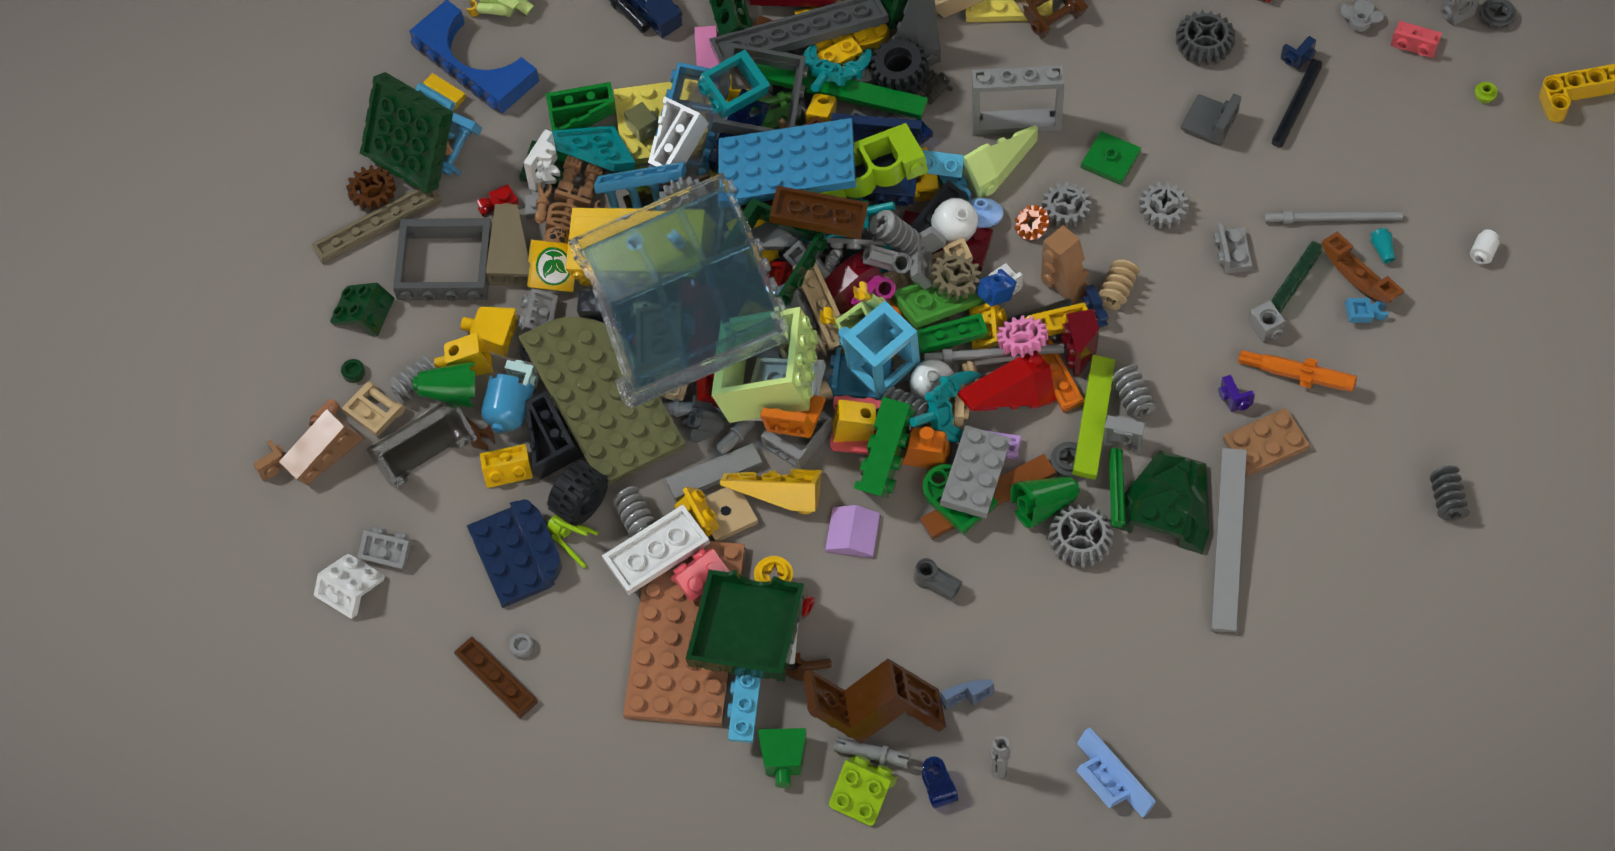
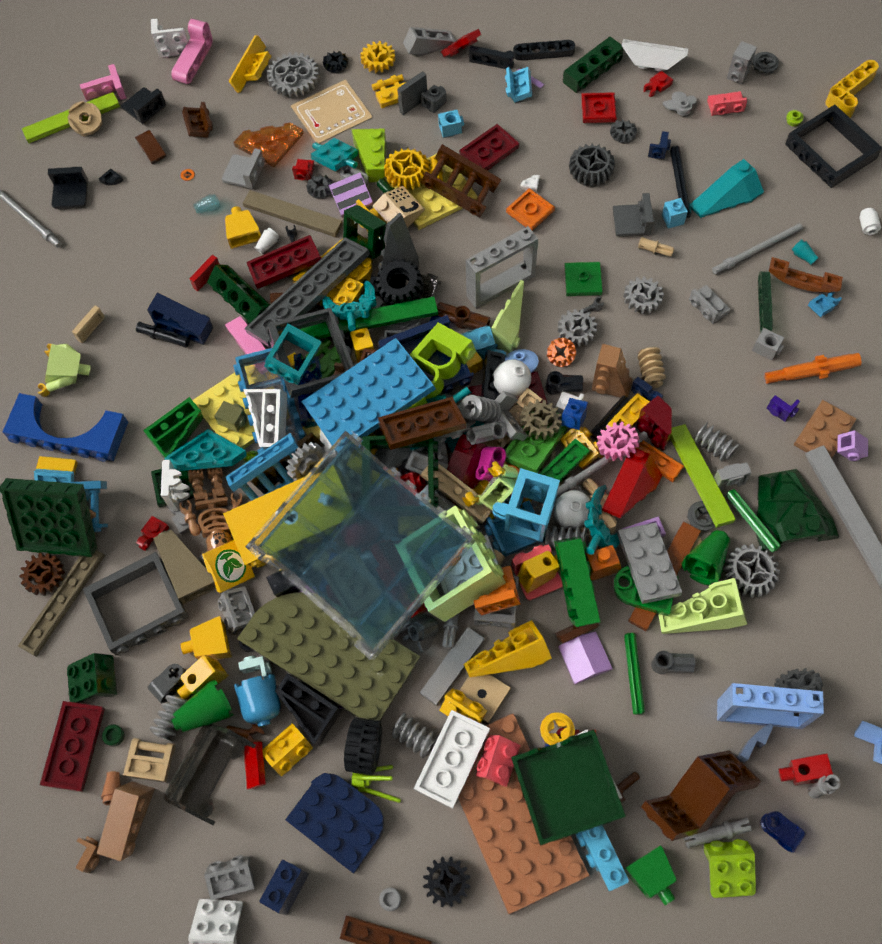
camera: 30 degrees left, 5 degrees up
(310, 360) = (72, 746): none -> dark red plate
(429, 345) = (167, 682): none -> dark grey piece
(429, 576) = (284, 887): none -> dark blue panel
(467, 463) = (254, 766): none -> red tile
(588, 664) = (436, 884): none -> black gear
(859, 500) = (572, 632): none -> reddish brown tile
(891, 571) = (634, 674): none -> green axle
(947, 133) = (472, 320): none -> reddish brown piece
(1009, 682) = (770, 706): none -> light blue window
(1013, 256) = (566, 383): none -> black piece
(1015, 552) = (710, 610): none -> yellowish green wedge
(1015, 734) = (815, 768): none -> red torso
(1047, 661) = (800, 680): none -> dark grey gear
(1102, 55) = (530, 209): none -> orange plate
(1104, 192) = (596, 306): none -> dark grey hand
(1123, 28) = (531, 183): none -> white tile
(1215, 160) = (655, 246): none -> tan axle
(1261, 133) = (674, 213): none -> medium azure brick
(1275, 23) = (618, 134): none -> dark grey gear
(1280, 467) = (852, 445): none -> lavender brick
(1351, 137) = (734, 187): none -> teal wedge
(1508, 178) = (849, 130): none -> black window

